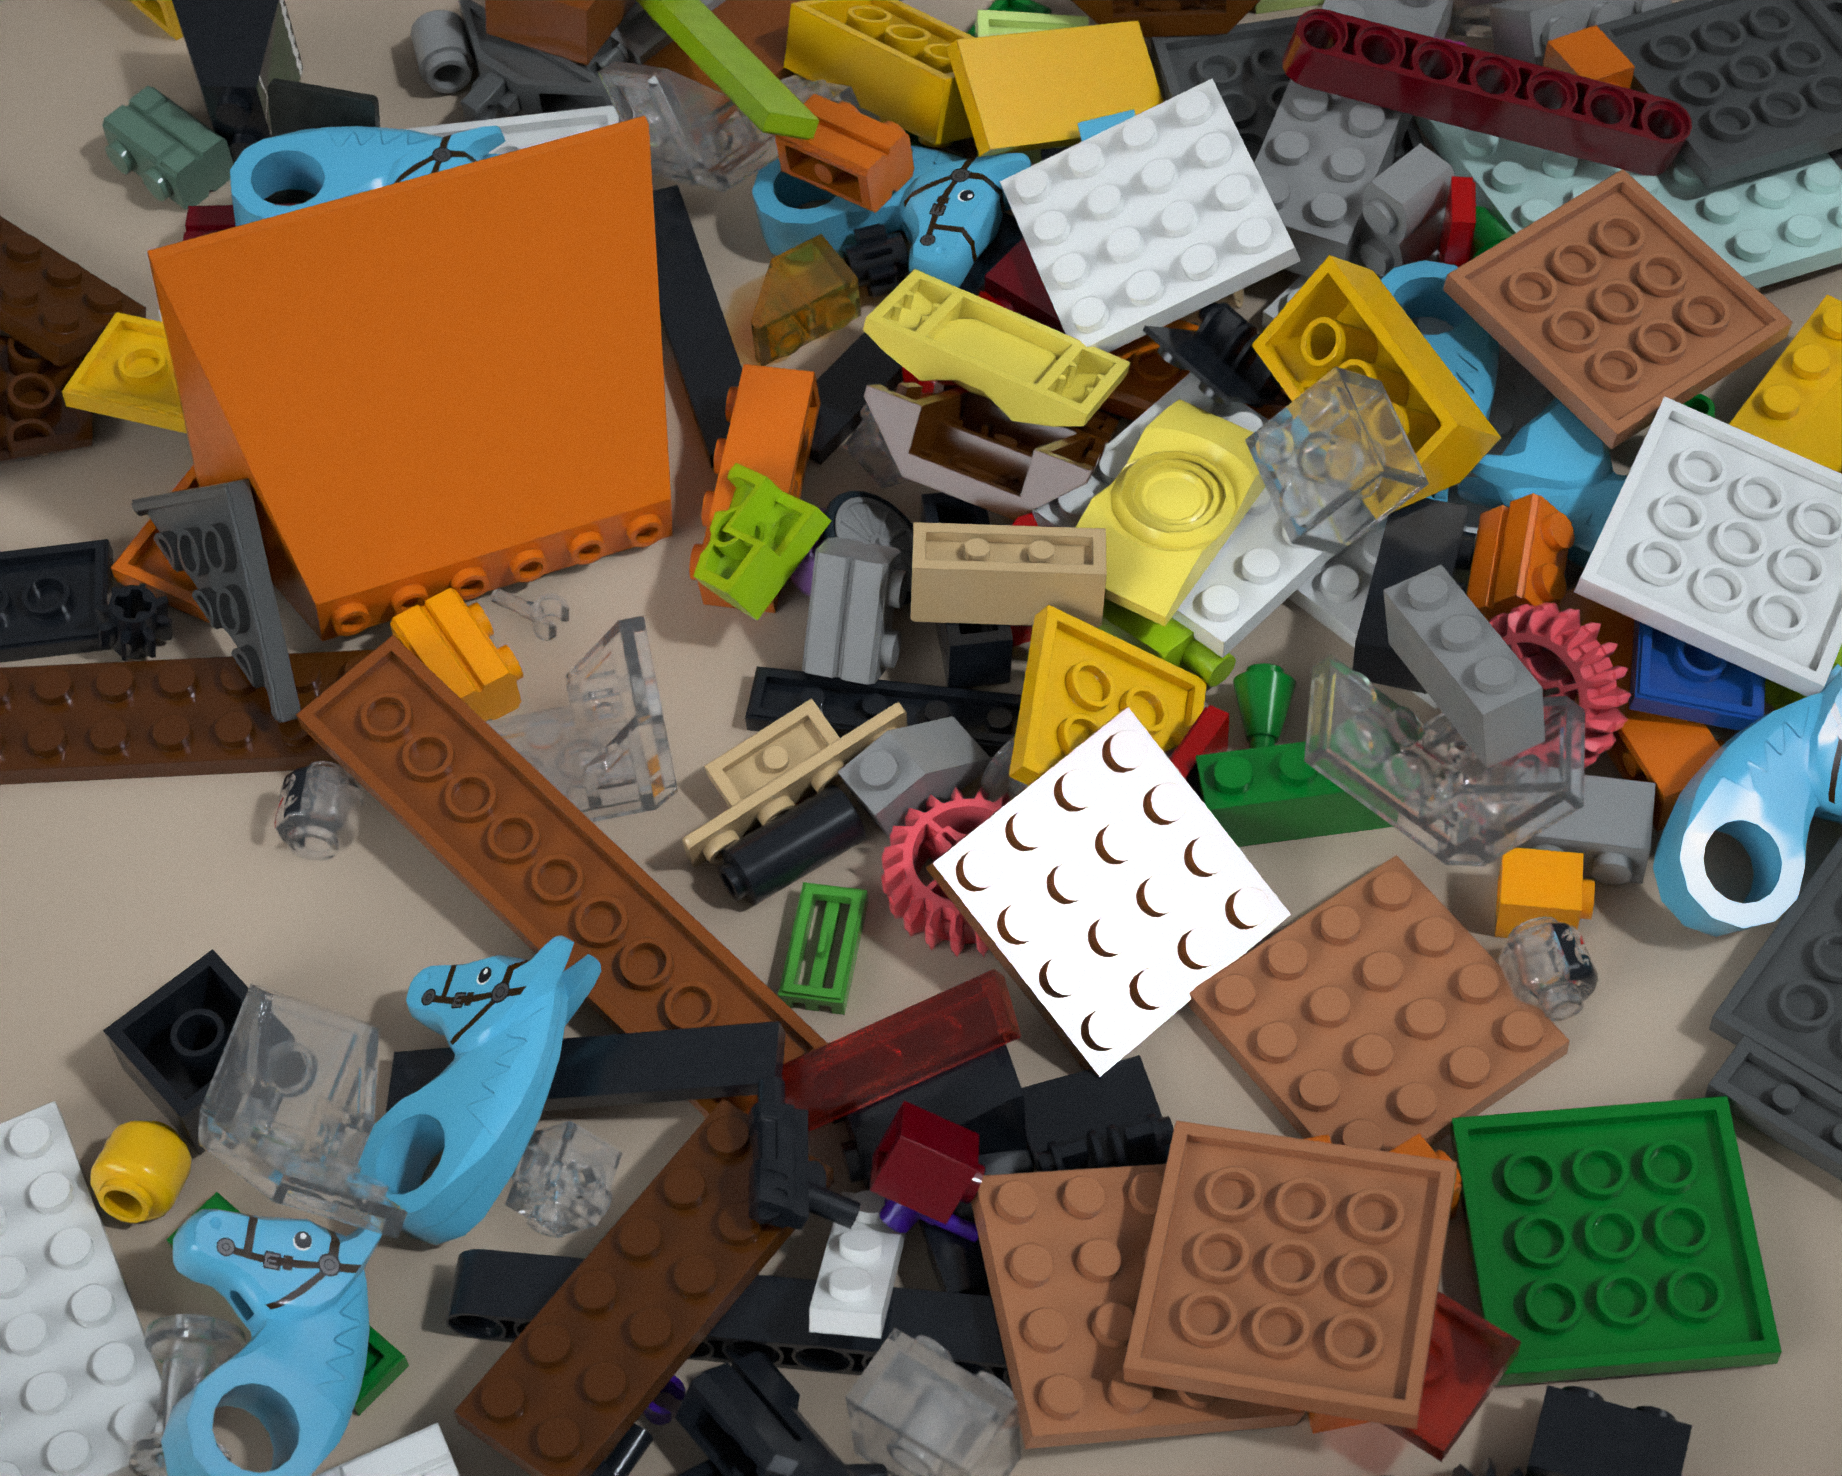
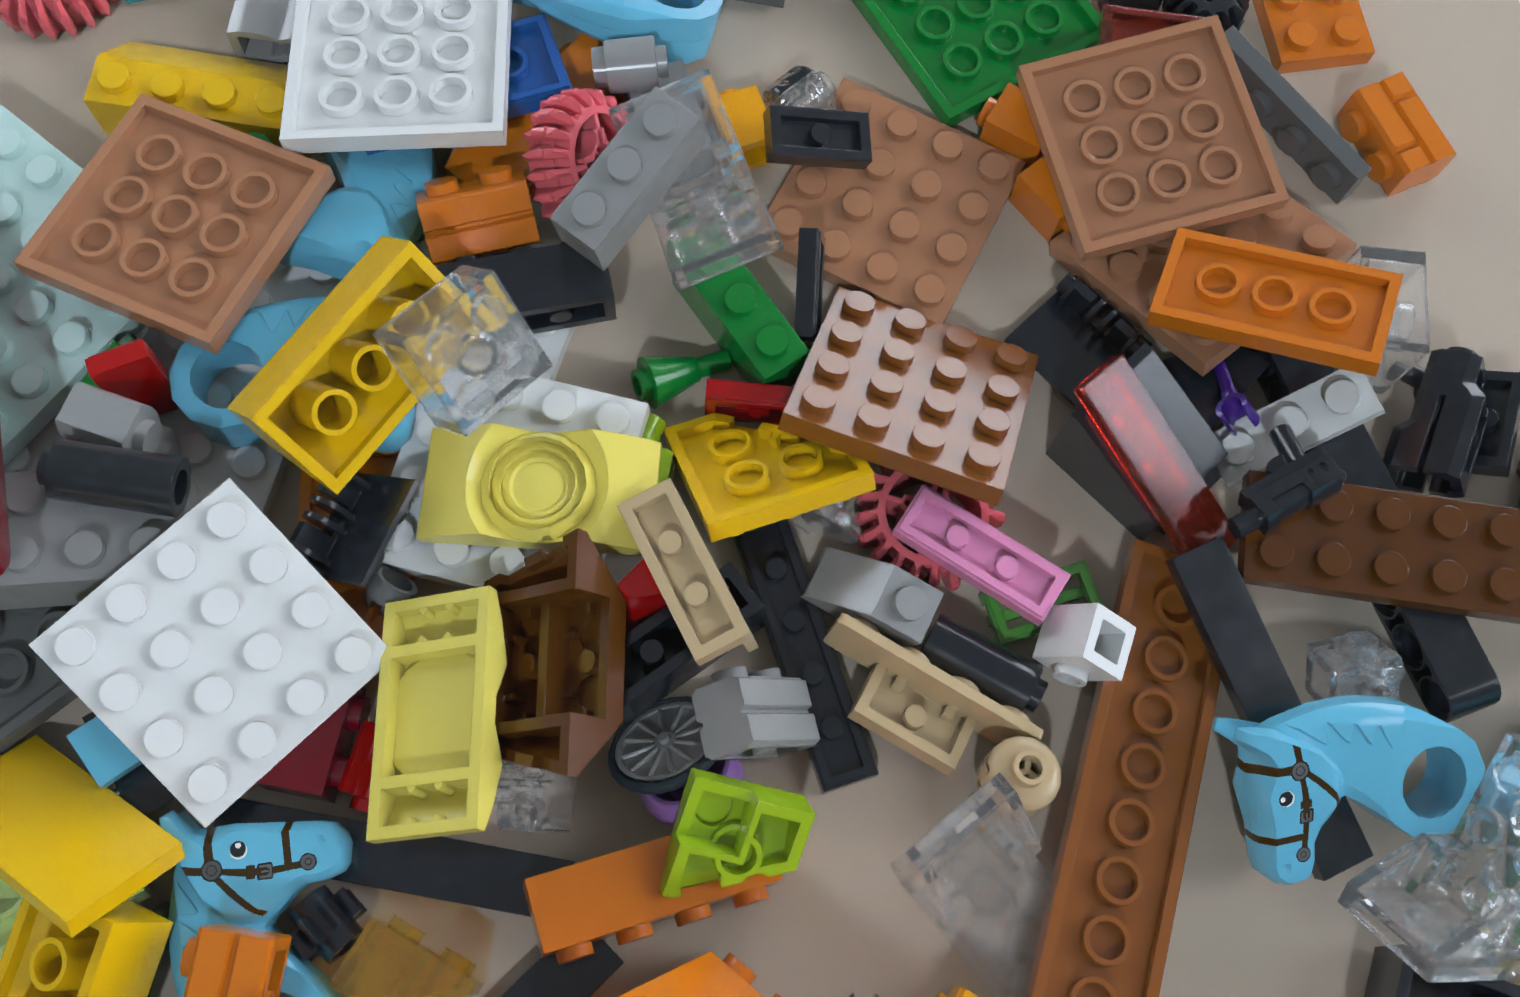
camera: 130 degrees left, 15 degrees up
(659, 812) = (1027, 767): none -> tan head
(750, 923) = (1084, 643): none -> white brick
(883, 867) = (981, 555): none -> bright pink tile
(927, 1163) = (1222, 395): dark red brick -> none
(996, 1253) = (1276, 301): none -> orange plate
(1158, 375) = (389, 586): none -> dark grey hinge
(1300, 861) = (809, 283): none -> black tile
(1337, 171) = (115, 477): none -> black brick
(1472, 932) = (817, 137): none -> black plate
(1649, 771) = (629, 64): none -> light grey brick

